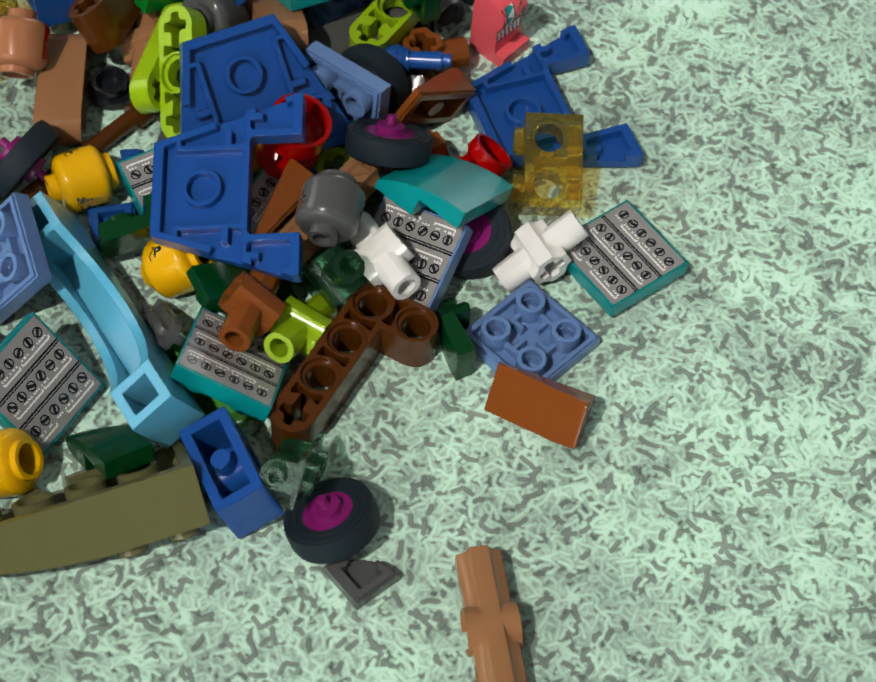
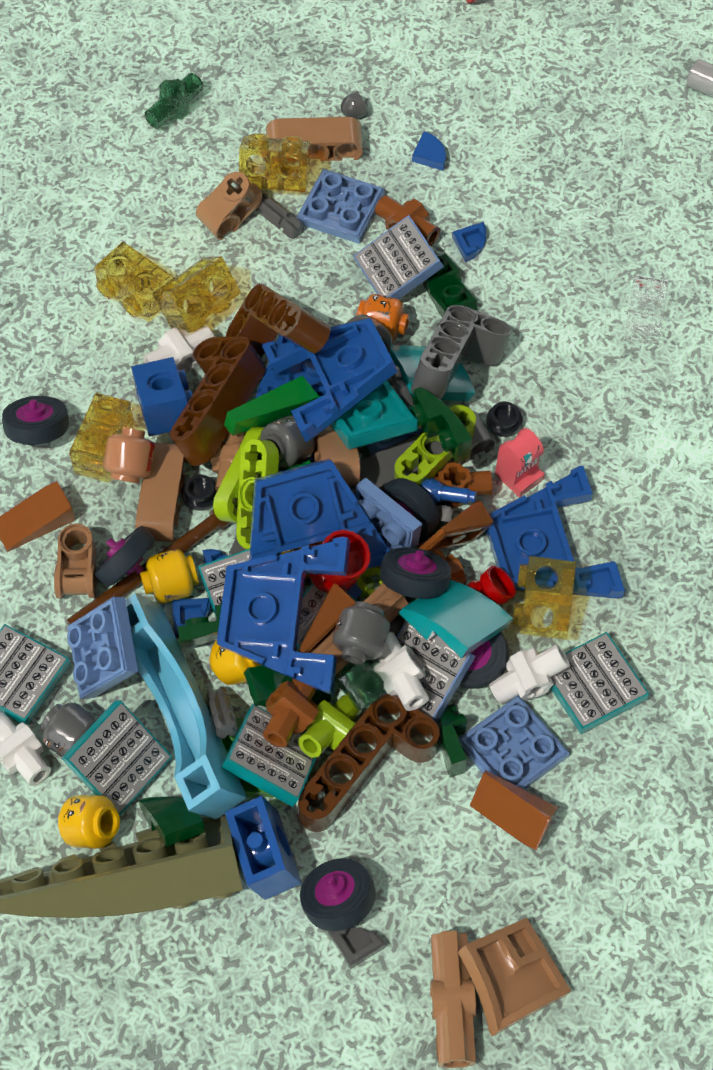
camera: 10 degrees right, 5 degrees up
(295, 468) = (312, 851): clear green hinge -> none
(563, 592) = (512, 975): none -> medium nougat plate

